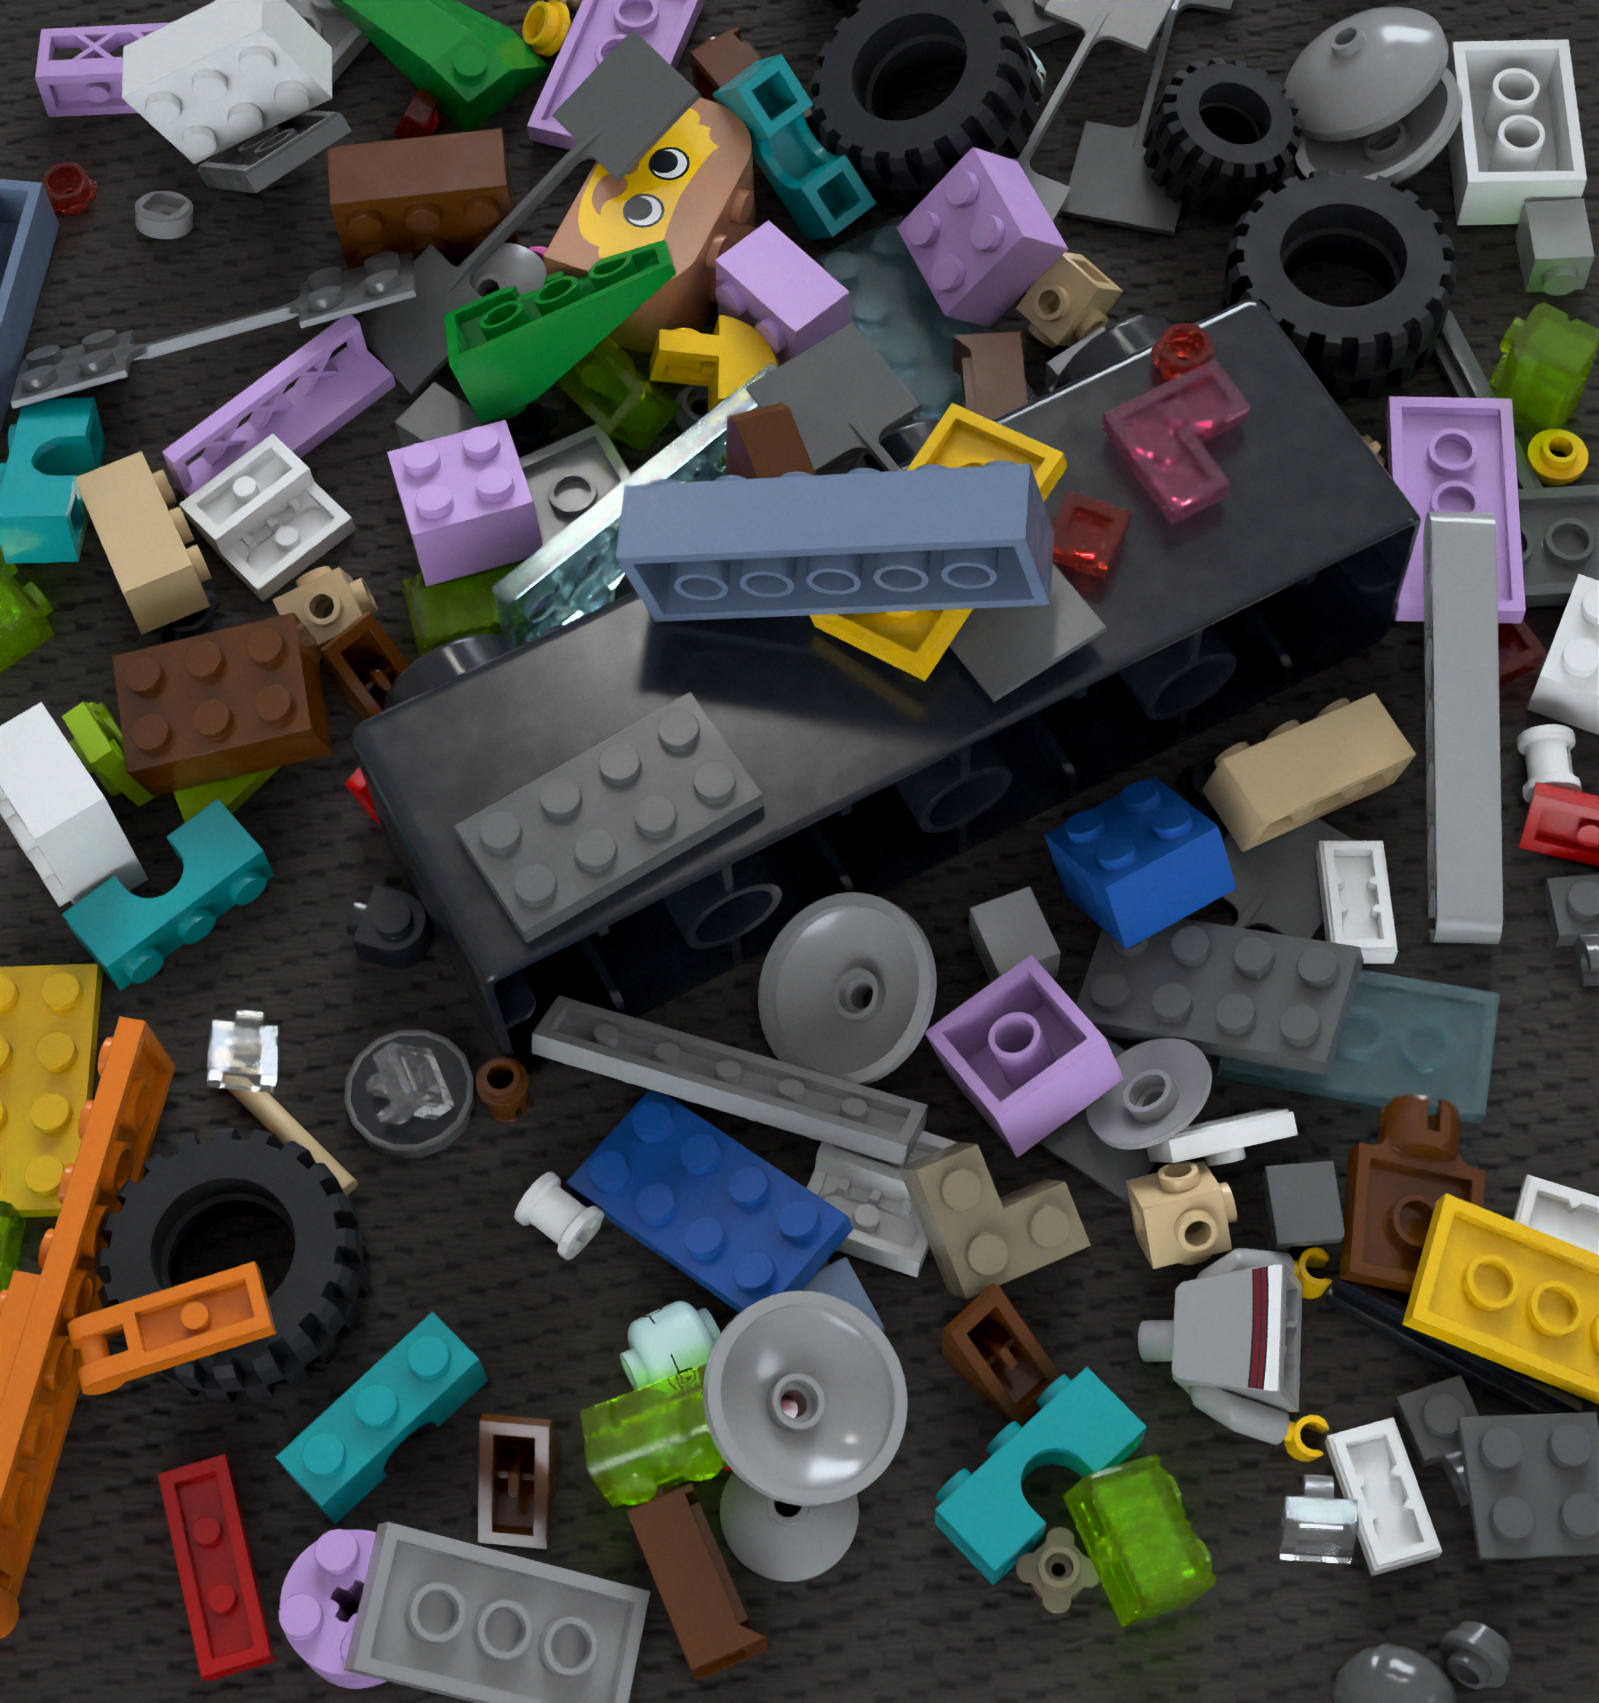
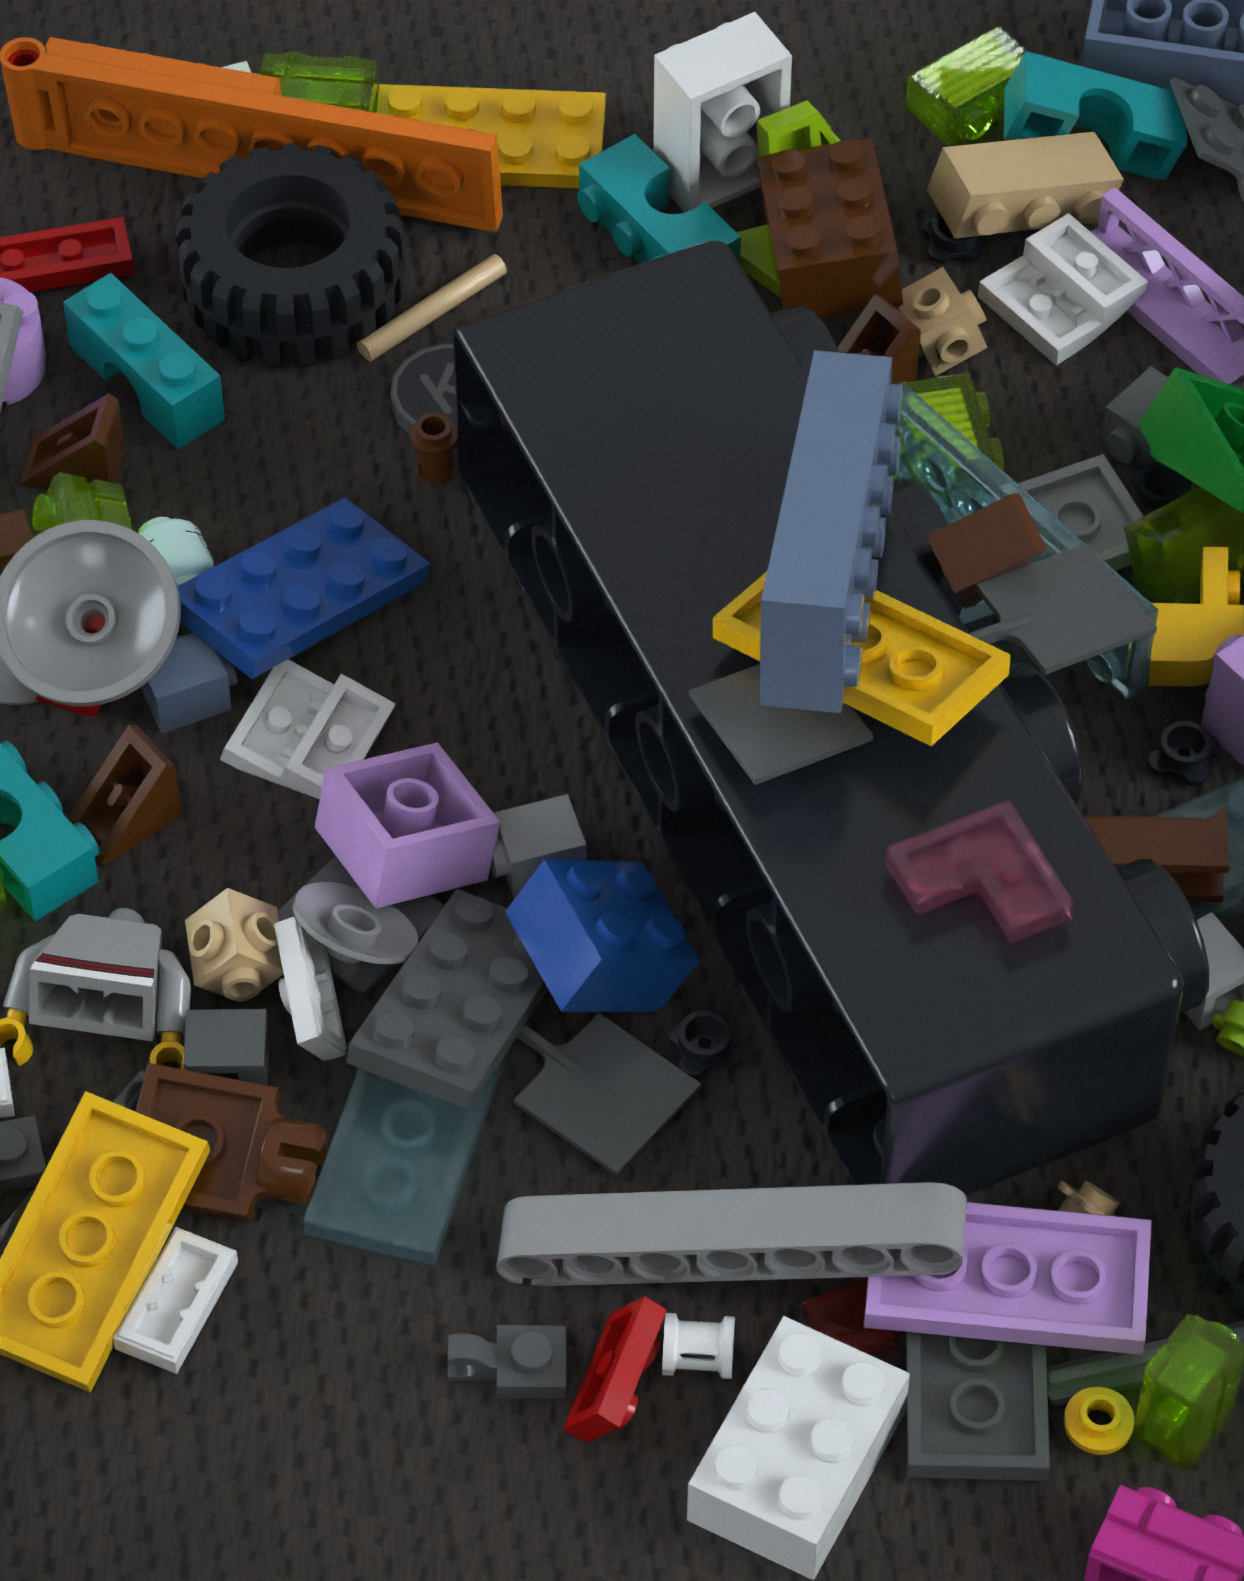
camera: 90 degrees right, 10 degrees down
(172, 1327) = (214, 180): orange plate -> none
(243, 1053) = (494, 271): clear tile -> none
(412, 1084) = (433, 375): clear tile -> none
(466, 502) = (1040, 404): lavender brick -> none
(558, 1215) = (313, 487): white bush -> none
(608, 816) = (601, 407): dark grey plate -> none
(730, 1080) = (416, 608): light grey plate -> none
(818, 982) = (495, 698): light grey dish -> none
(983, 1236) = (237, 779): dark tan brick -> none
(1088, 533) = (871, 782): clear red plate -> none
(1181, 340) = (1095, 875): clear red plate -> none
(1307, 770) = (698, 1096): tan brick -> none
(1357, 898) = (550, 1136): white plate -> none

